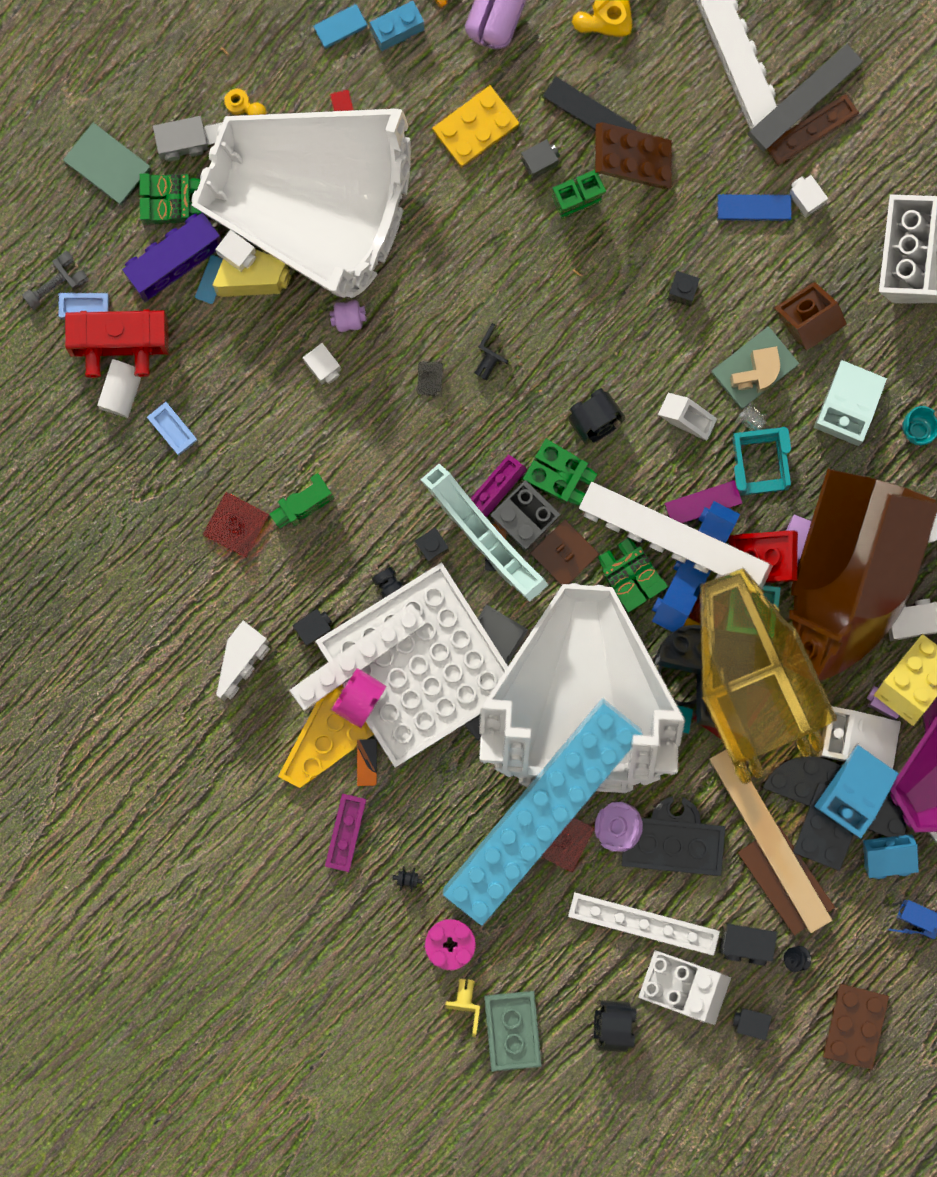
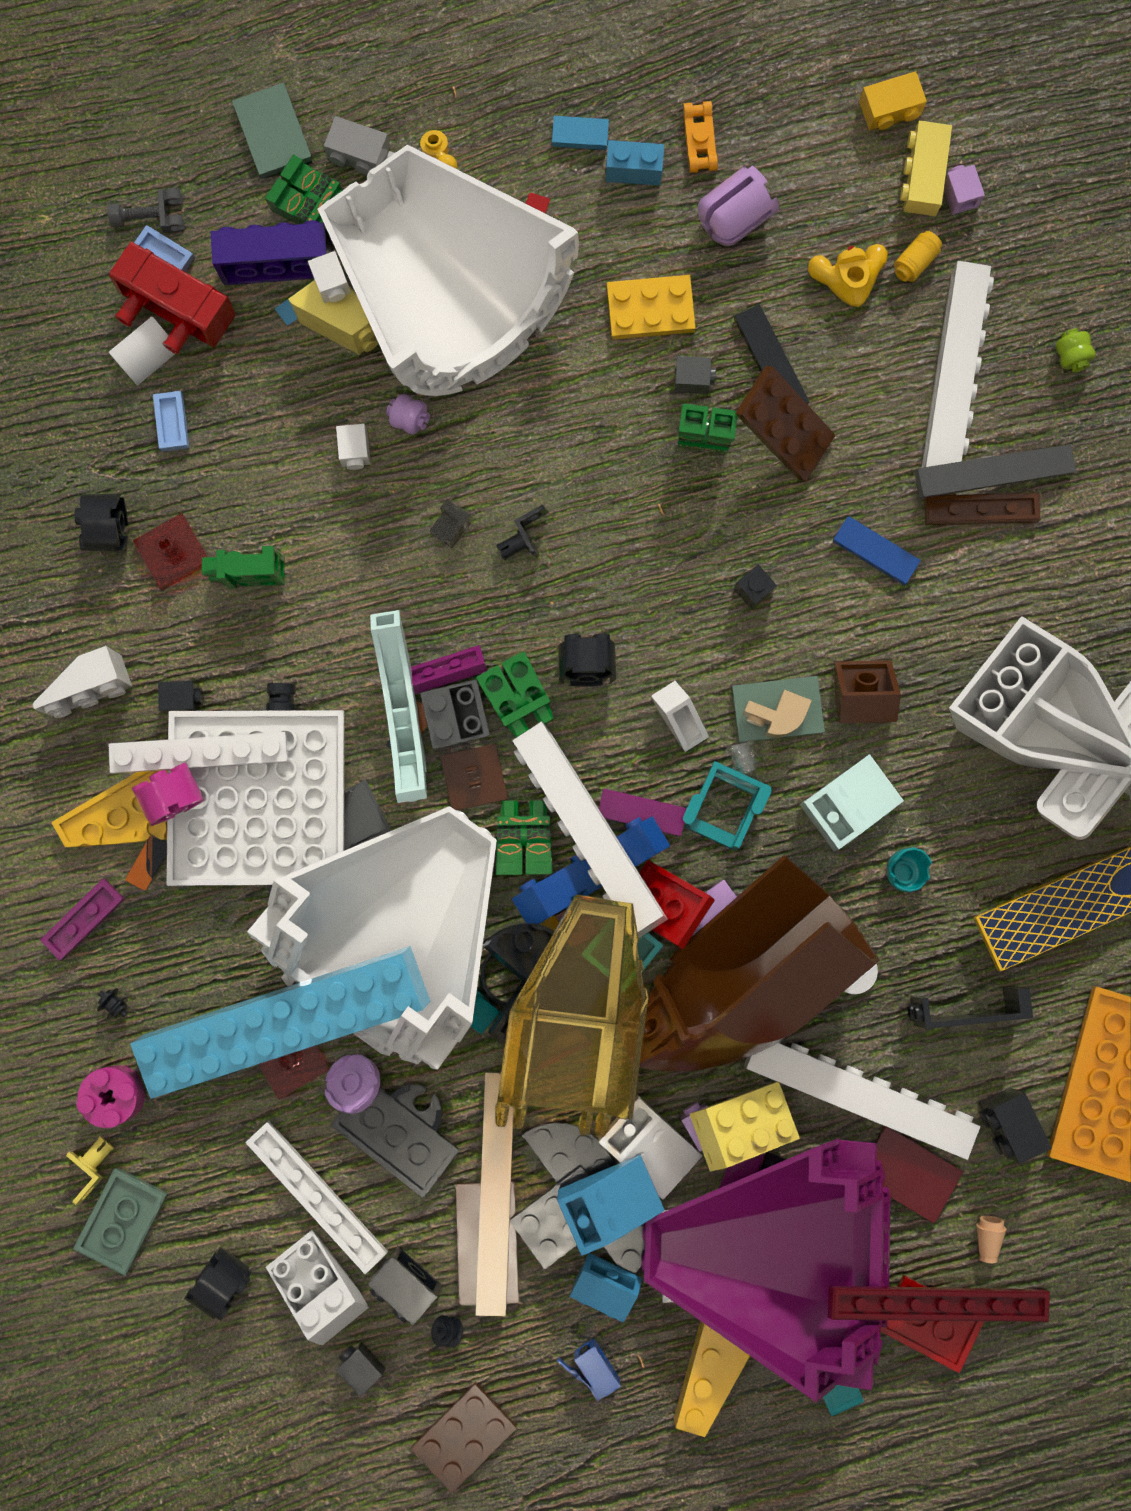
camera: 35 degrees right, 0 degrees up
(174, 534) = (102, 522): none -> black brick
(431, 545) = (346, 688): black brick -> none
(807, 195) = (937, 570): white brick -> none

